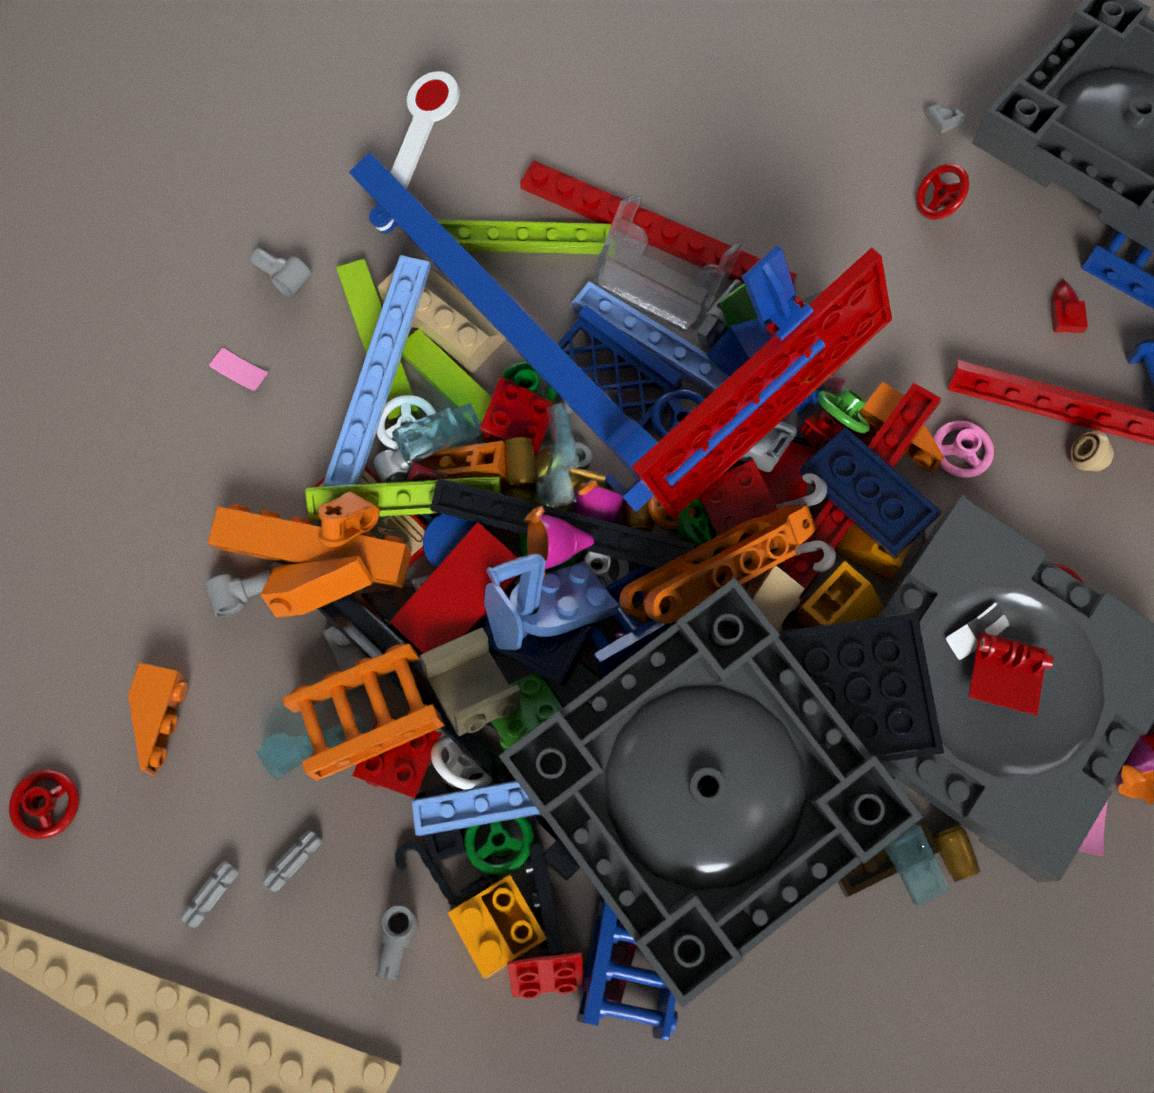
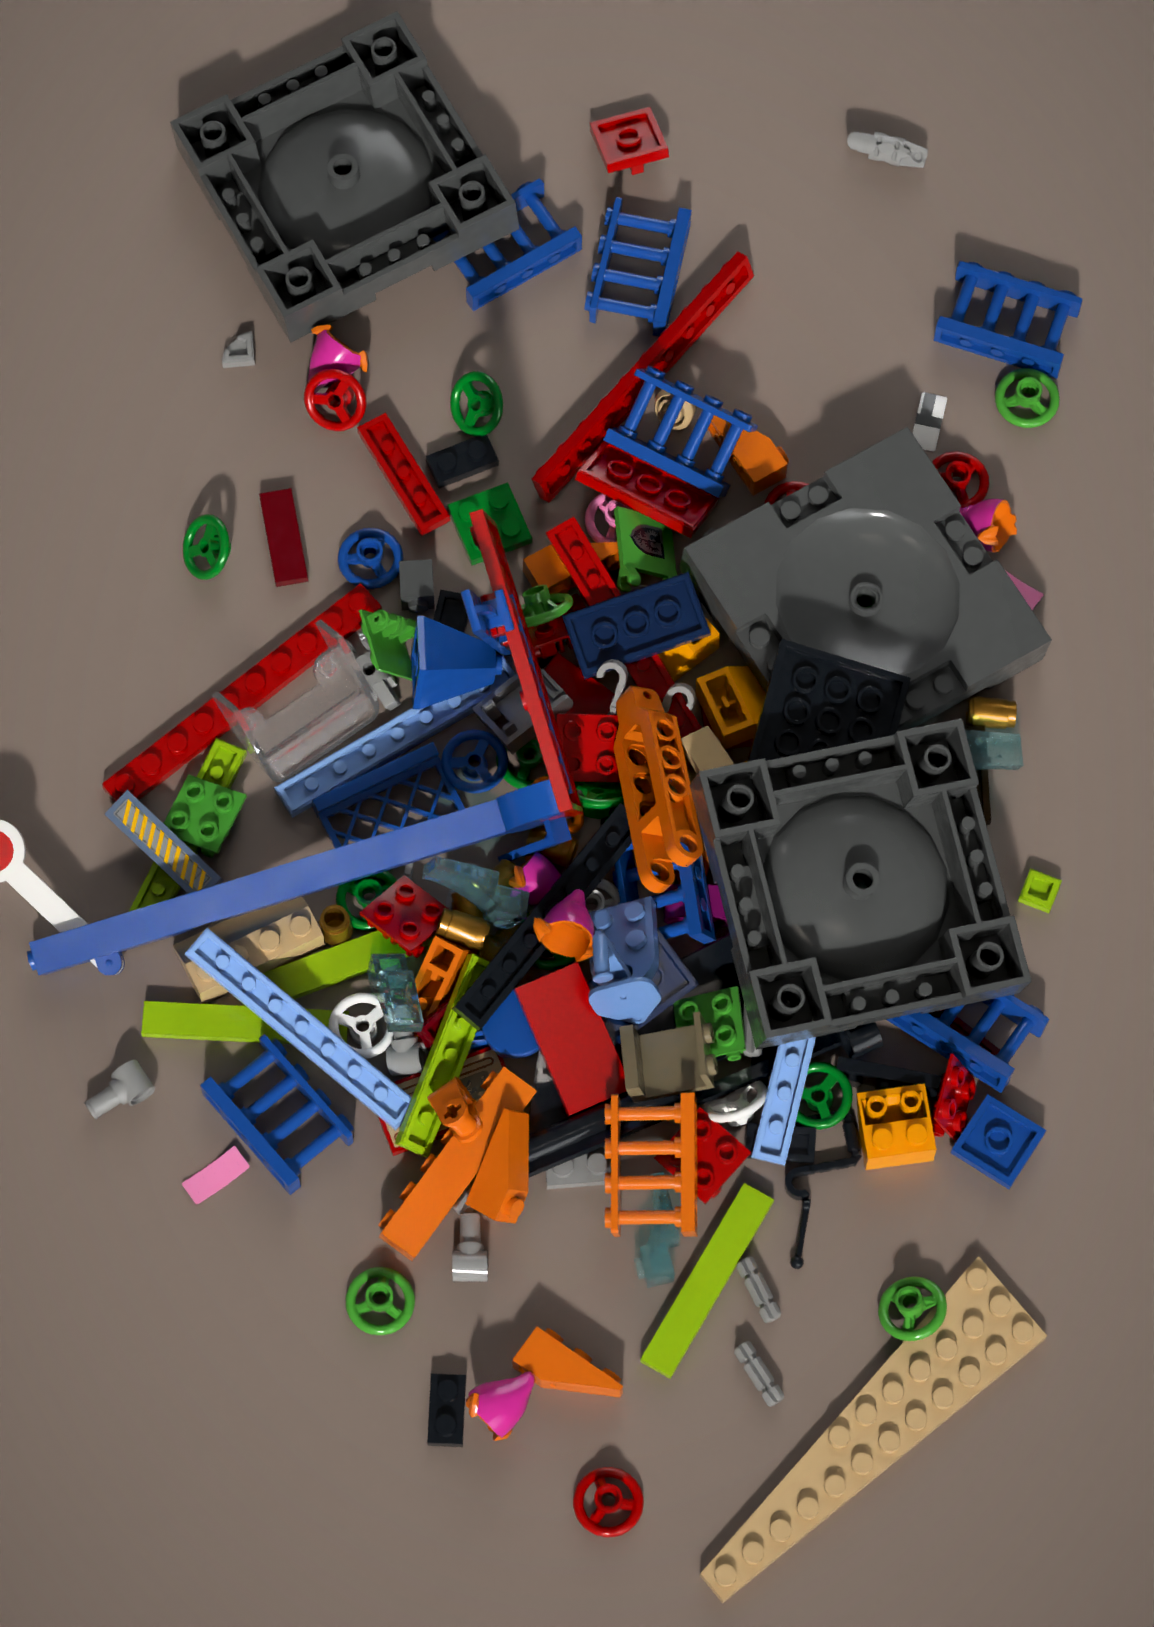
camera: 65 degrees left, 0 degrees up
(88, 630) = (446, 1410): none -> black plate
(93, 667) = (501, 1403): none -> dark pink hat
(161, 527) = (379, 1288): none -> bright green piece
(285, 809) = (707, 1281): none -> lime tile
(287, 367) = (264, 1145): none -> blue fence
(316, 1006) = (905, 1293): none -> bright green piece
(334, 885) = (797, 1260): none -> black hinge
(395, 943) = (871, 1221): light grey pin -> none
(486, 367) = (334, 925): none -> pearl gold piece
(499, 216) = (161, 844): none -> tile
(525, 1039) = (998, 1141): none -> blue plate
(539, 238) = (204, 814): none -> bright green hinge
(768, 153) = (213, 546): none -> green piece
(802, 975) = (1039, 890): none -> lime tile
(806, 206) = (283, 537): none -> dark red tile
(821, 261) = (373, 543): none -> blue piece
(902, 351) = (502, 508): none -> green plate
(915, 261) = (403, 474): none -> red plate
(946, 309) = (462, 460): none -> black plate
(948, 473) = (642, 548): none -> bright green flag
(965, 639) = (813, 596): white sticker -> none
(982, 175) = (333, 354): none -> dark pink hat
(1003, 299) = (479, 403): none -> green piece
(1004, 458) = (647, 489): none -> red tile
(1008, 673) = (861, 590): red hinge -> none
(1042, 478) = (683, 464): none -> blue fence
(1067, 311) = (513, 348): red plate -> none
(1088, 529) = (754, 457): none -> orange slope

